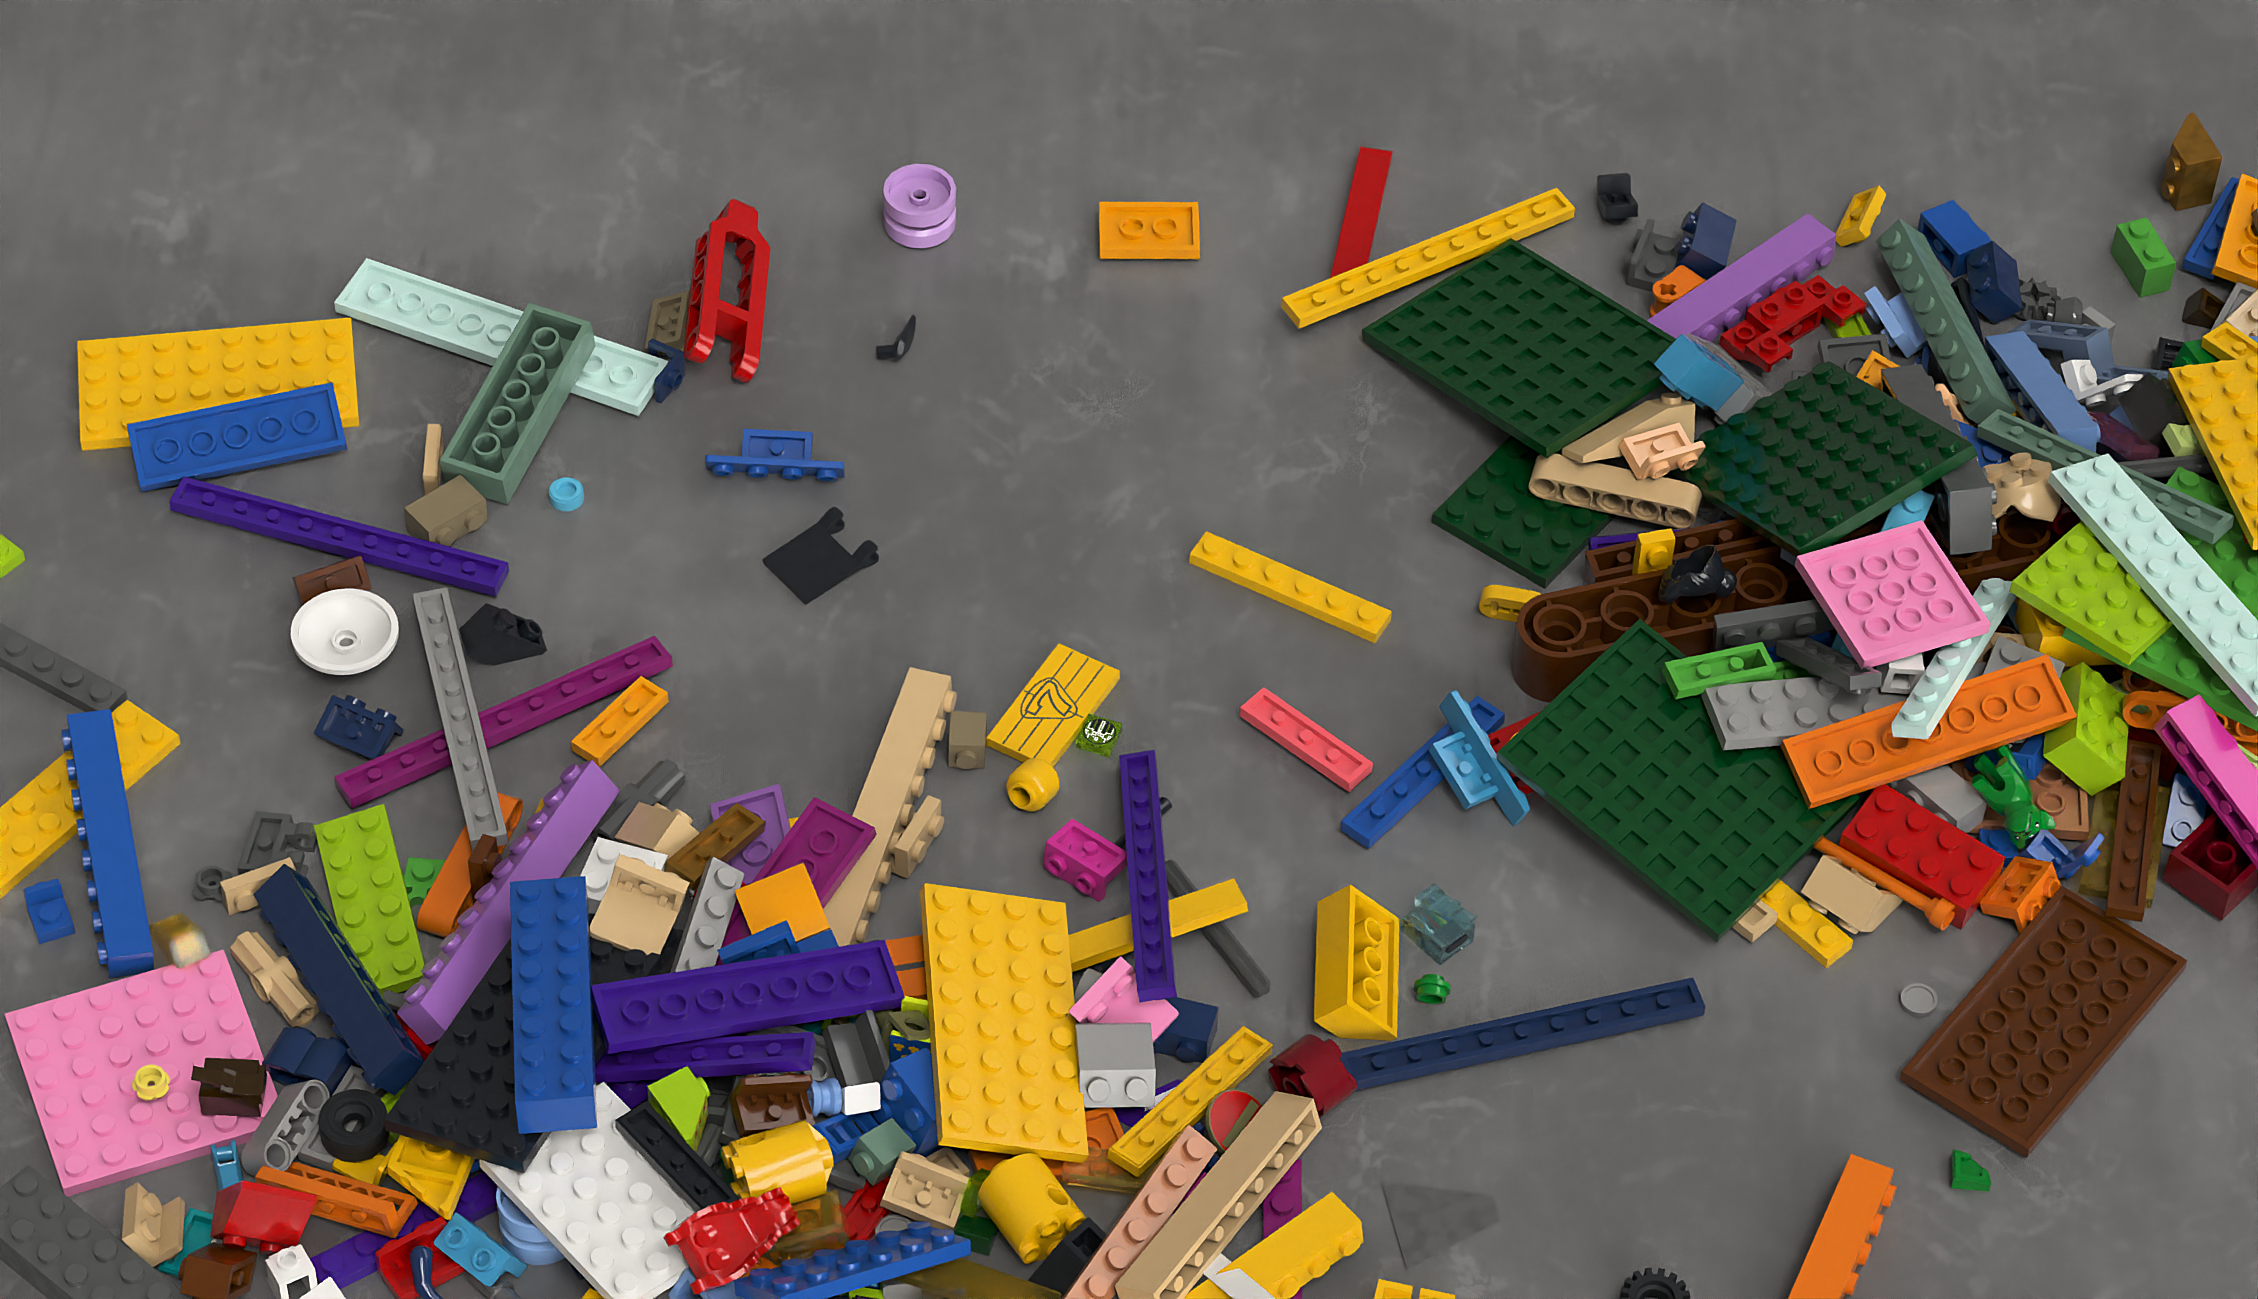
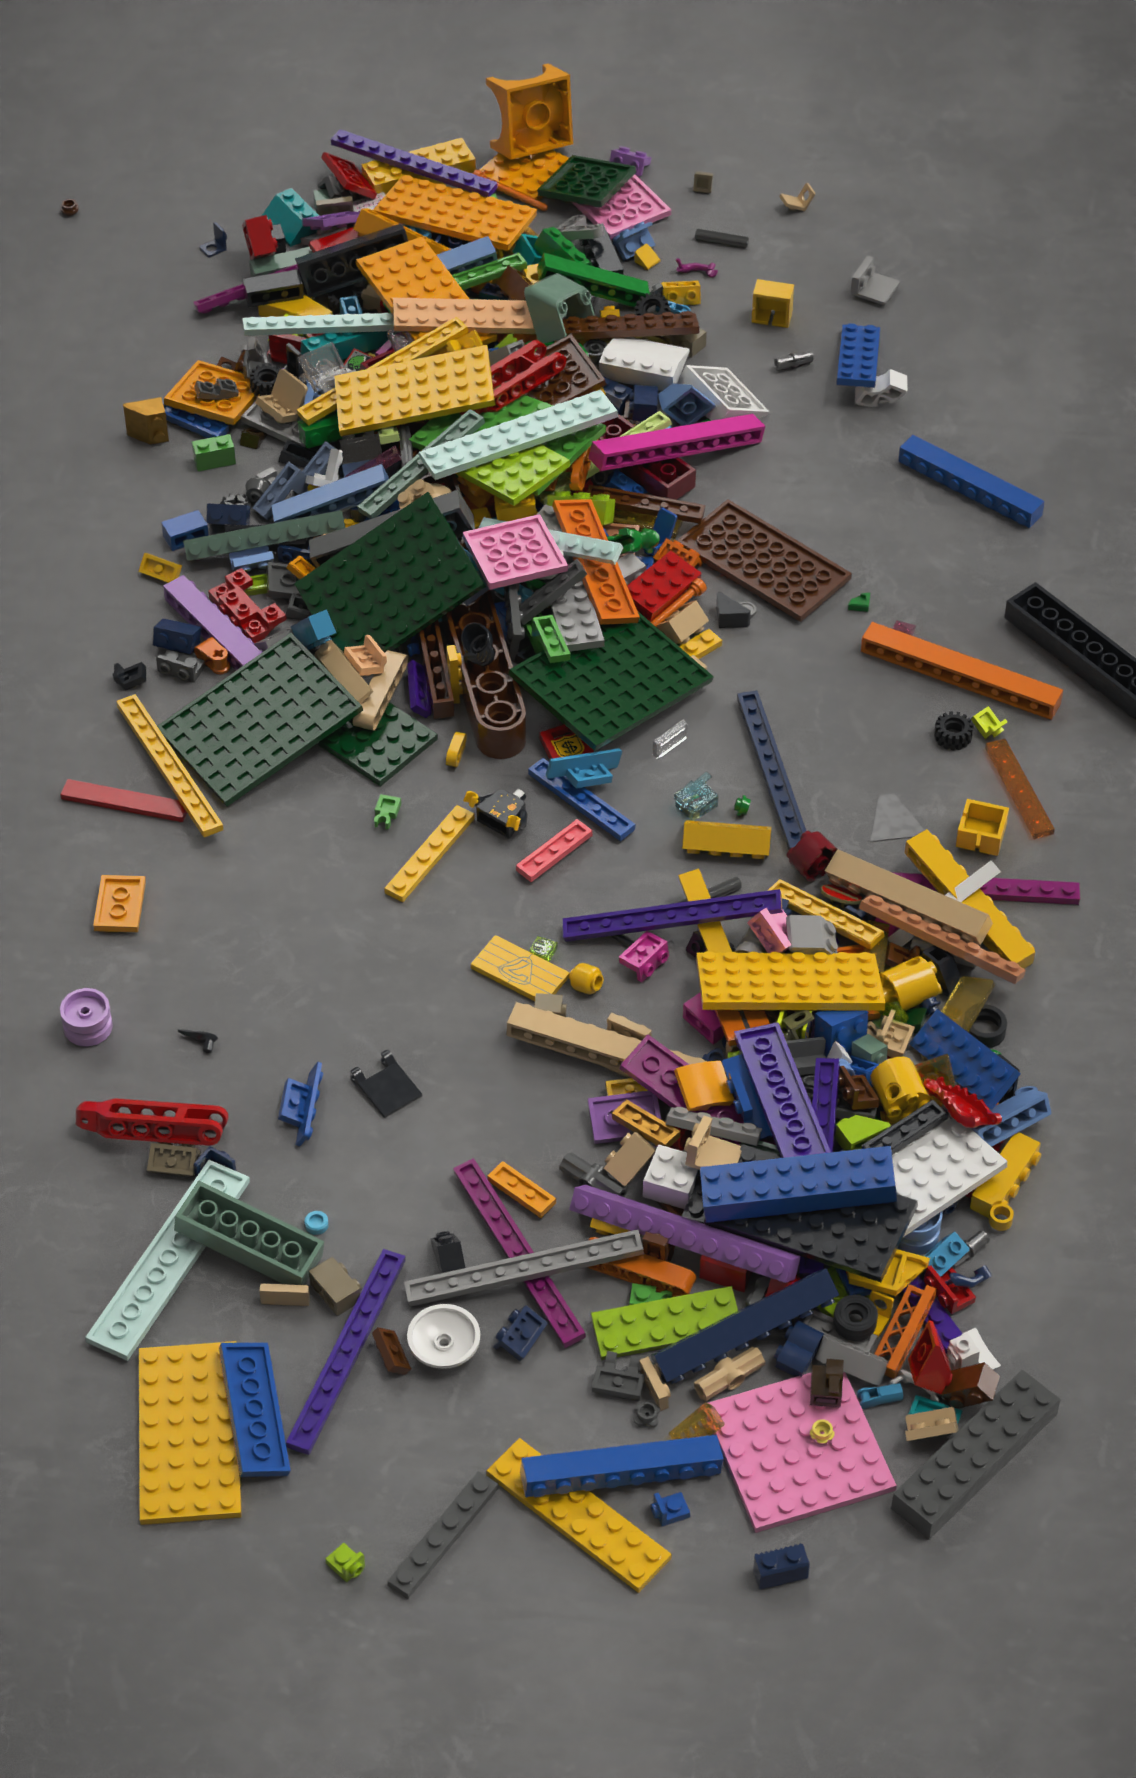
camera: 85 degrees left, 0 degrees up
(1003, 1254) = (931, 1005): none -> dark blue plate
(1106, 1205) = (896, 954): none -> reddish brown bracket
(1373, 526) = (386, 808): none -> bright green plate
(1379, 664) = (500, 810): none -> black torso
(1573, 886) = (670, 739): none -> clear tile
(1895, 964) = (731, 613): none -> black slope
(1907, 1238) = (904, 627): none -> clear pink slope

